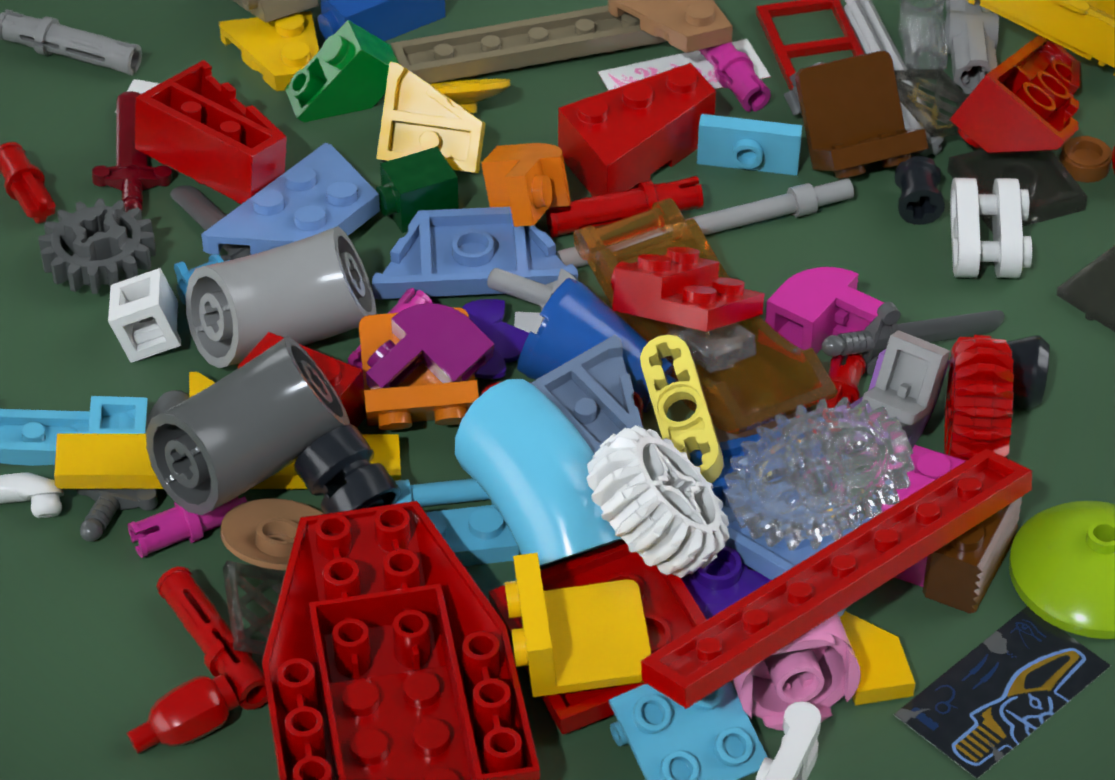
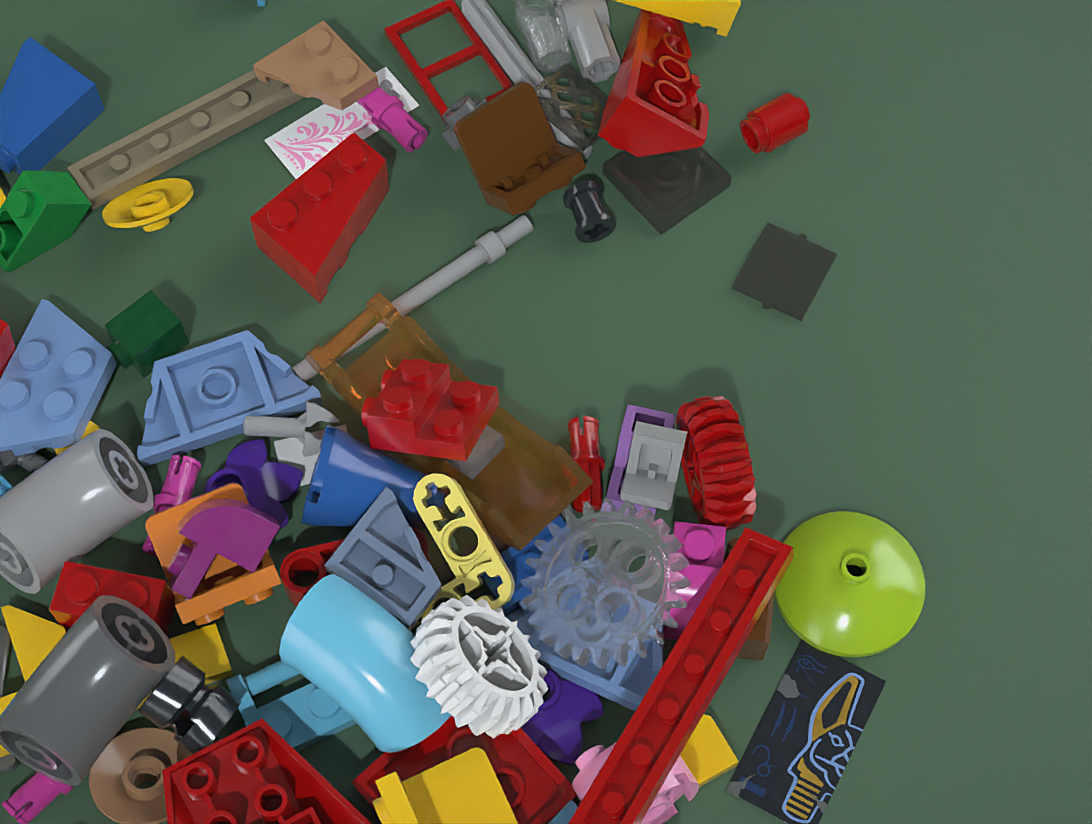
camera: 20 degrees left, 20 degrees up
(424, 118) = (132, 260): yellow wing -> none
(526, 180) = (244, 304): orange brick -> none
(616, 206) = (352, 291): red pin -> none
(749, 144) = (427, 199): medium azure plate -> none
(819, 305) = (547, 366): dark pink brick -> none
(877, 334) = (614, 387): dark grey sword -> none
(1008, 209) = (674, 221): white brick -> none
(1029, 370) = (739, 387): black cone -> none
(1086, 158) = (721, 133): dark orange tile -> none

